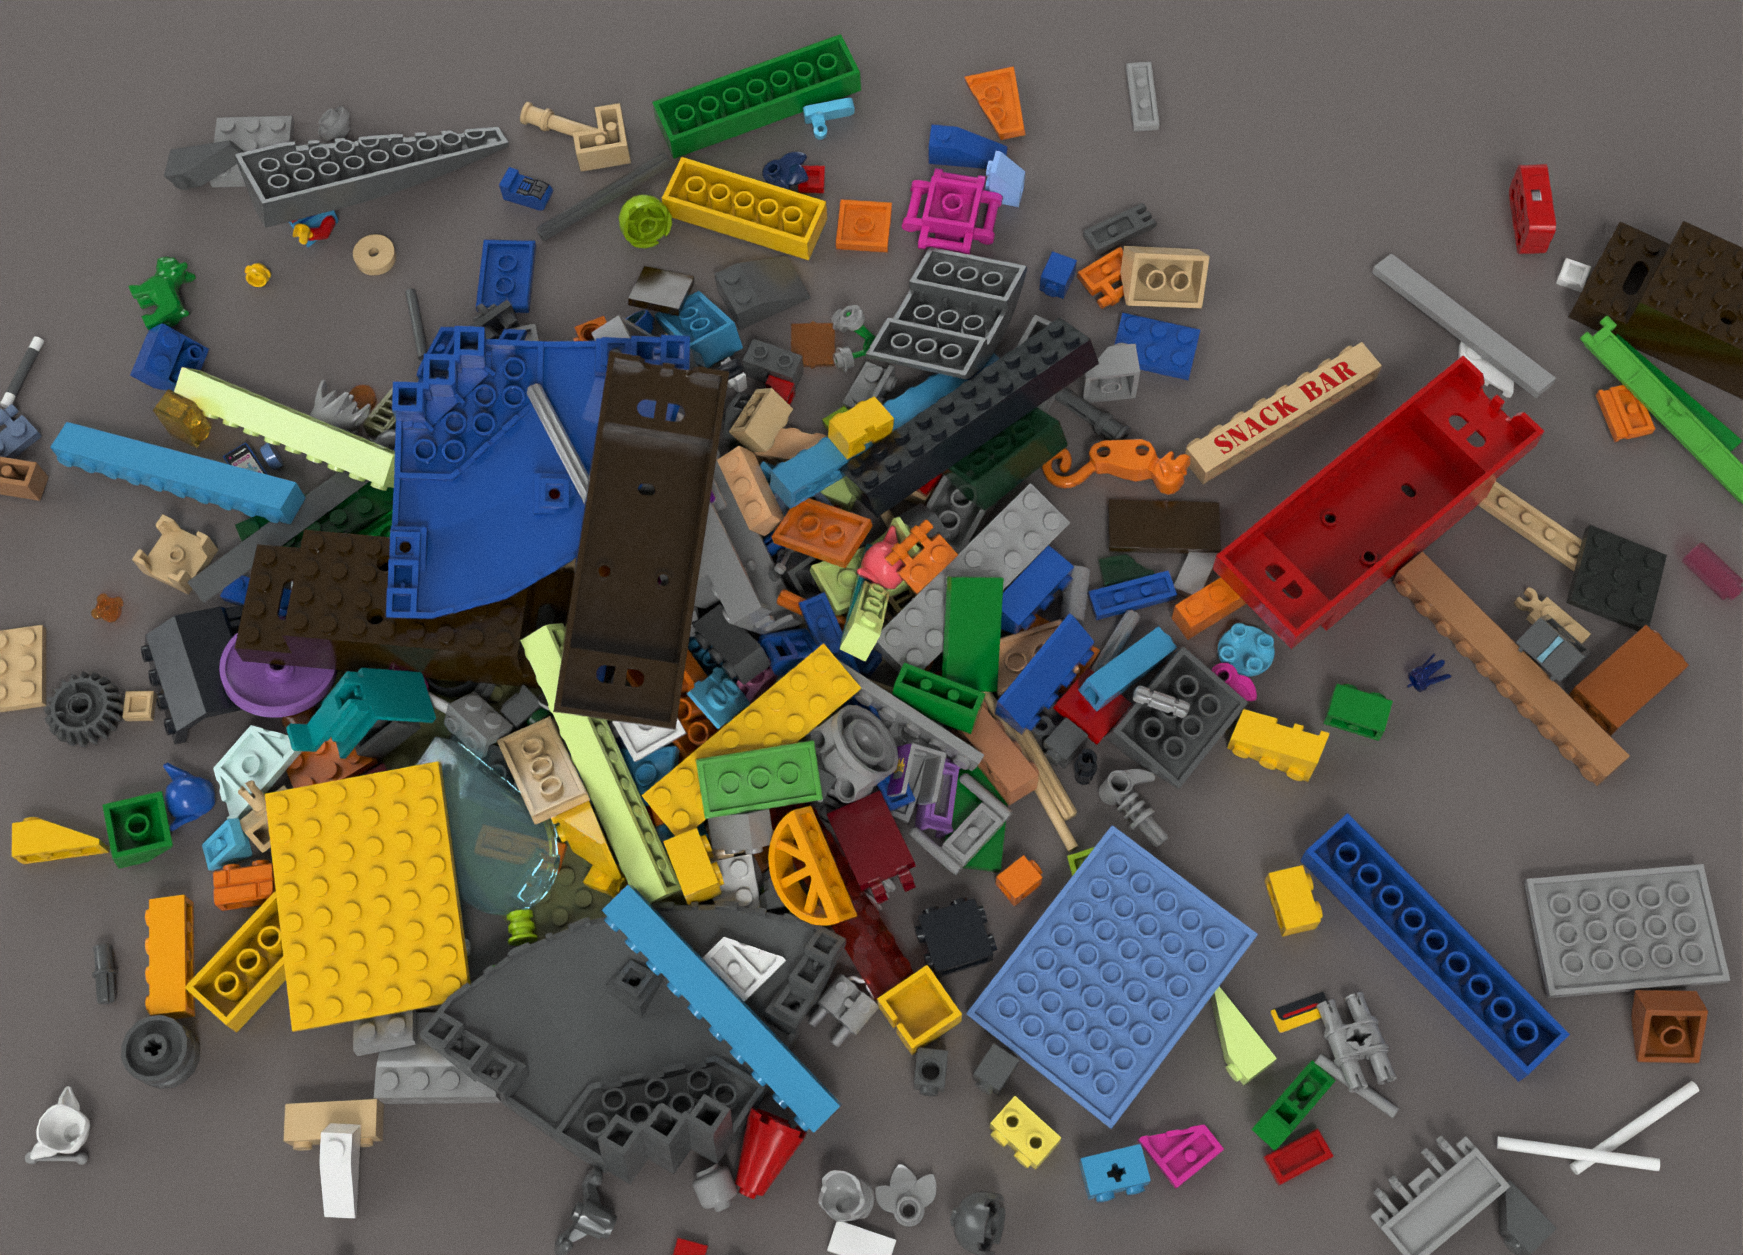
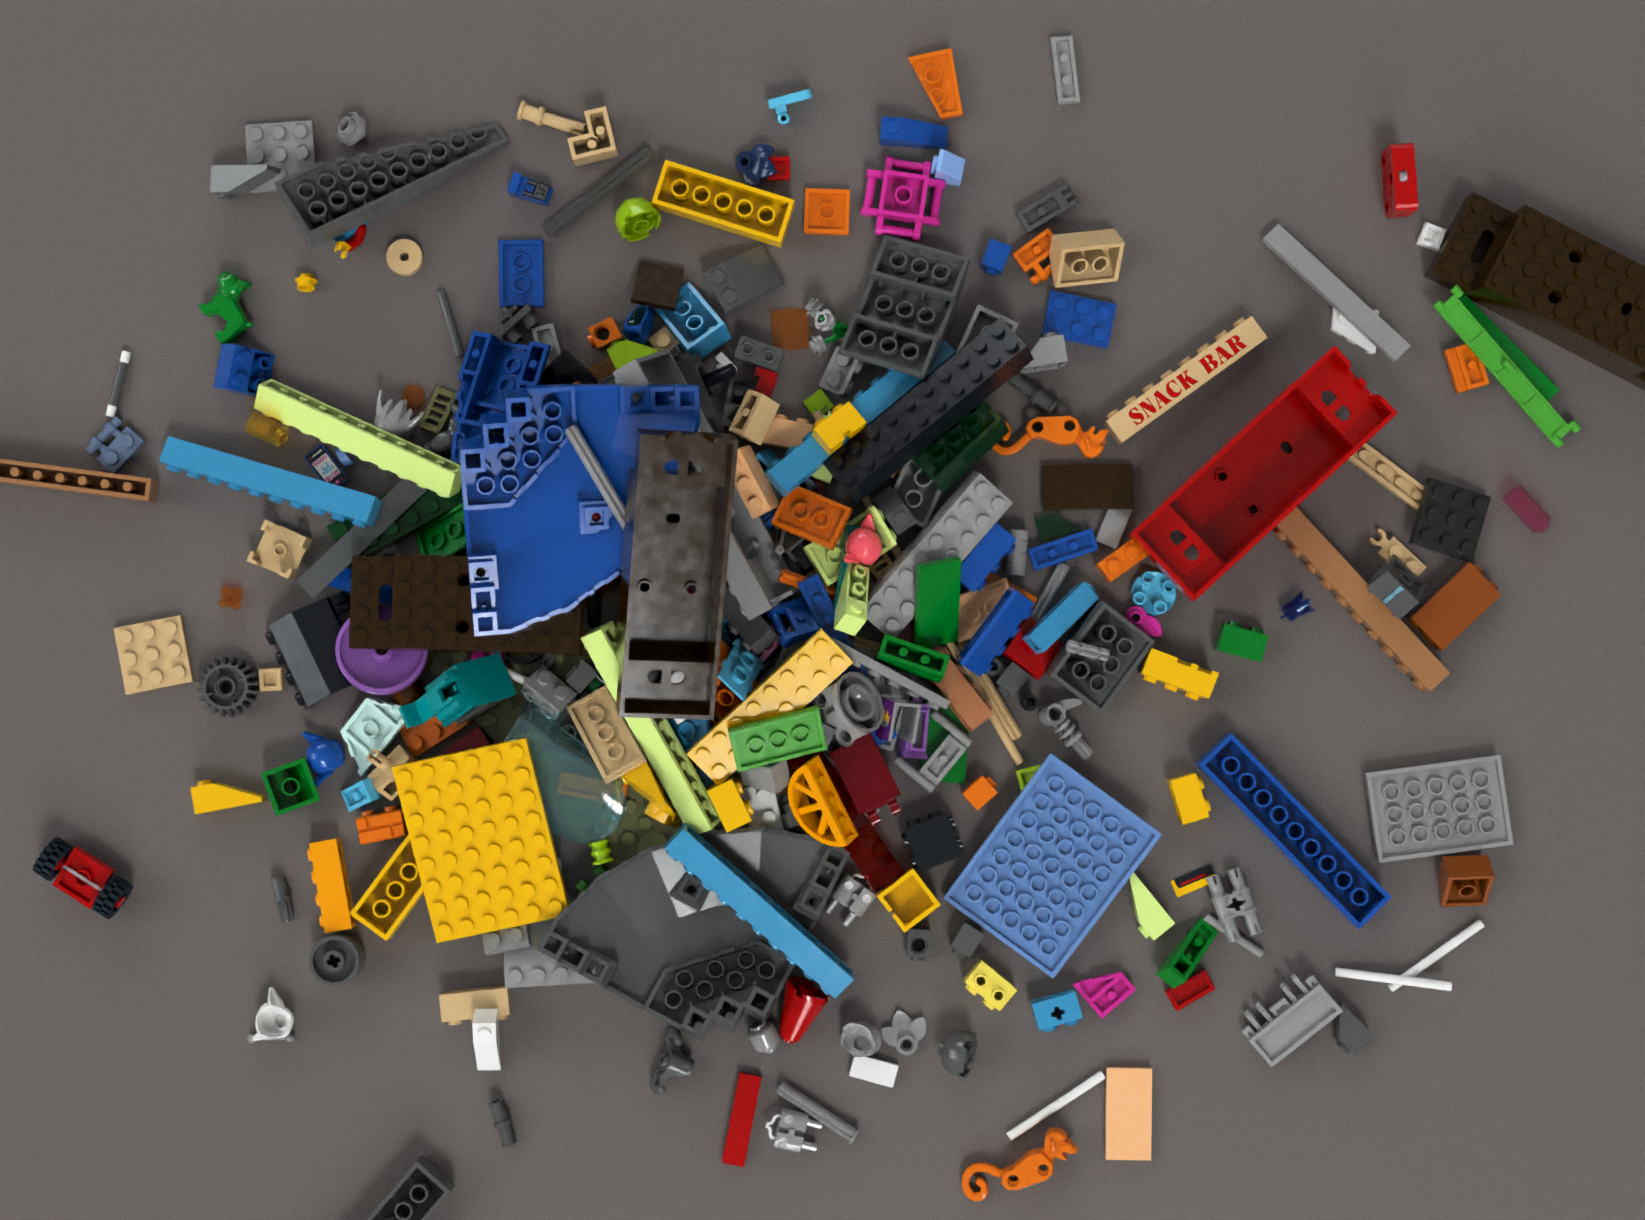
camera: 10 degrees left, 20 degrees up
(742, 966) = (773, 875): white wing -> none
(756, 96) = (726, 88): green brick -> none
(926, 562) = (898, 548): orange plate -> none

